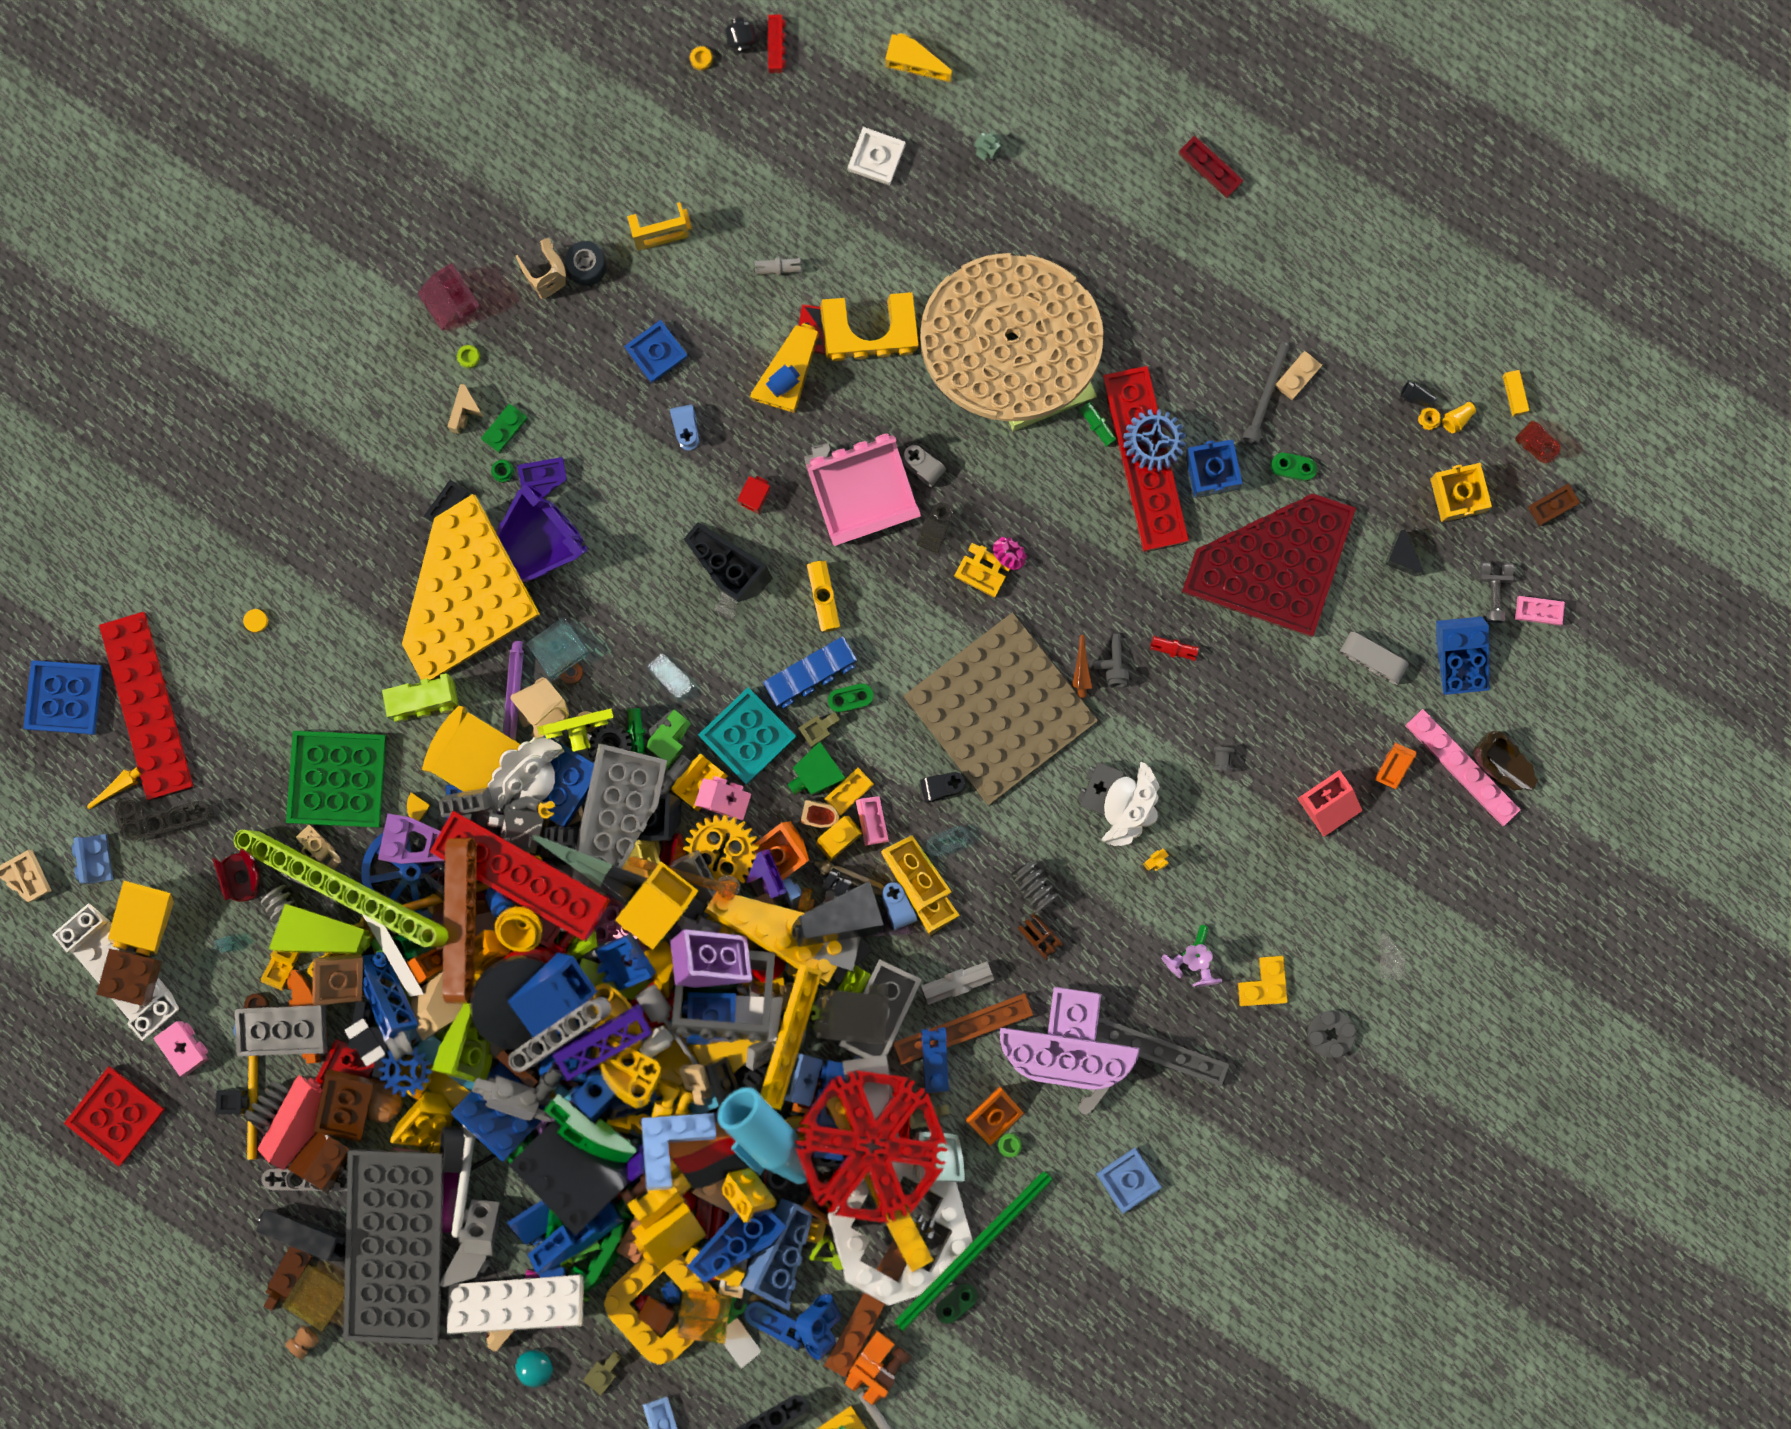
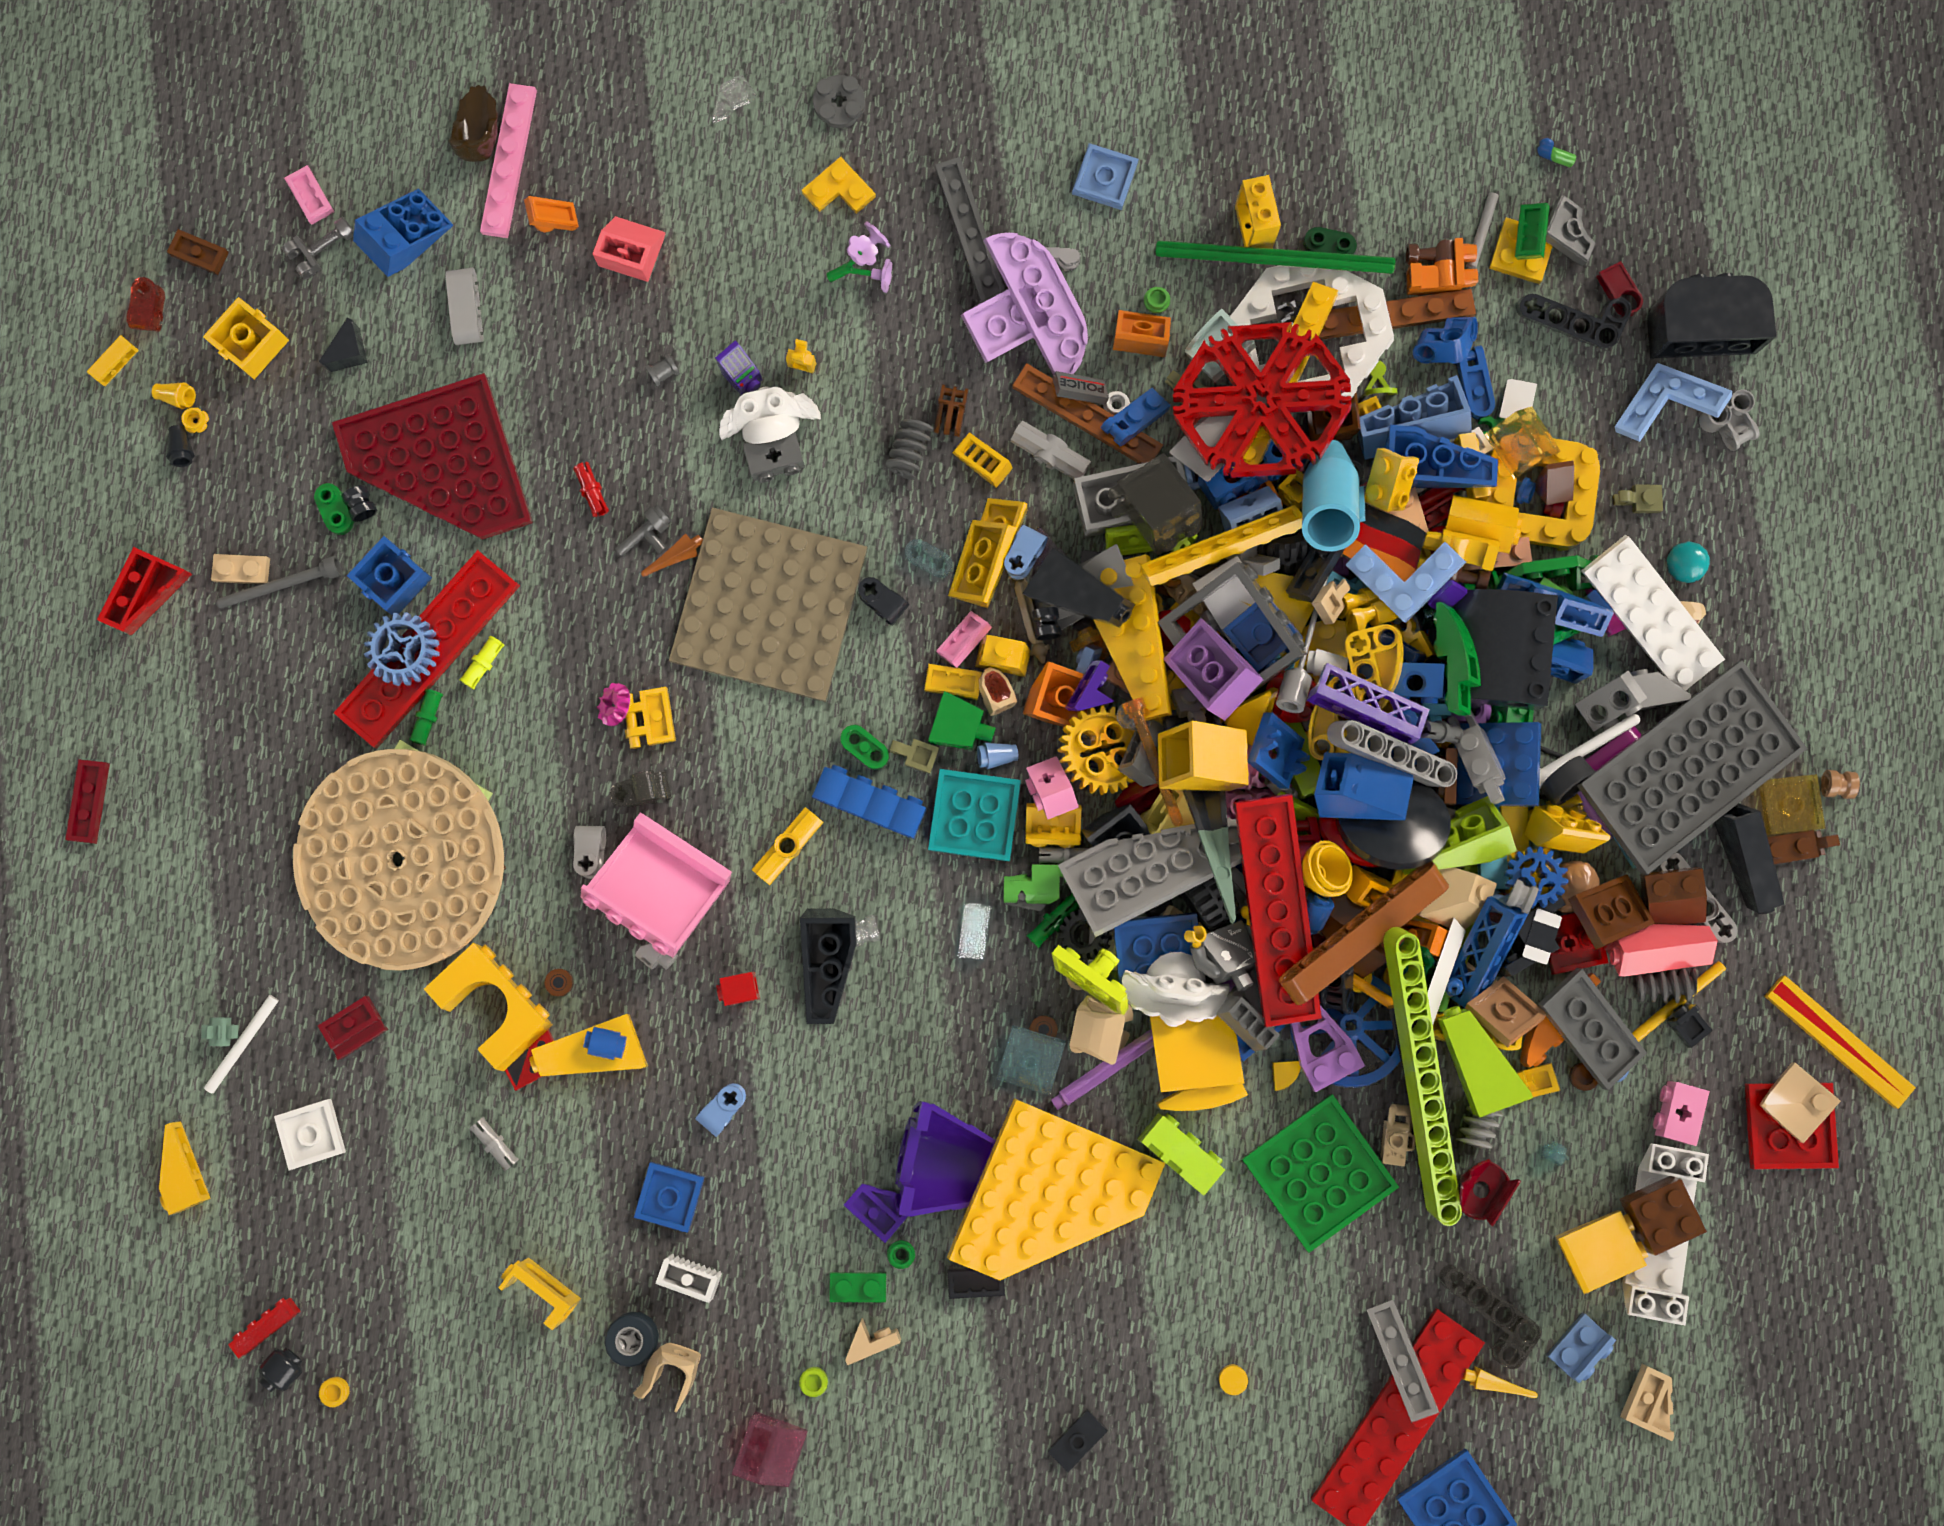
camera: 125 degrees left, 0 degrees up
(125, 1130) = (1798, 1102): none -> tan plate
(140, 1196) = (1840, 1042): none -> yellow tile
(178, 735) = (1402, 1361): none -> light grey plate
(299, 493) = (1077, 1440): none -> black plate
(594, 325) = (688, 1278): none -> white brick
(776, 782) = (994, 754): none -> medium blue cone
(851, 383) = (559, 982): none -> reddish brown tile
(925, 231) = (352, 1027): none -> dark red plate
(964, 1056) = (1116, 396): none -> white plate
(969, 150) = (241, 1044): none -> white bar
(970, 938) = (1000, 471): none -> yellow slope
(985, 1038) = (1080, 388): none -> dark grey tile
(1020, 1267) = (1258, 209): none -> yellow window
(1107, 487) = (482, 662): none -> neon yellow pin
(1179, 810) = (739, 369): none -> dark purple slope
(1283, 485) = (358, 501): none -> black wheel
(1331, 299) = (140, 591): none -> red wedge

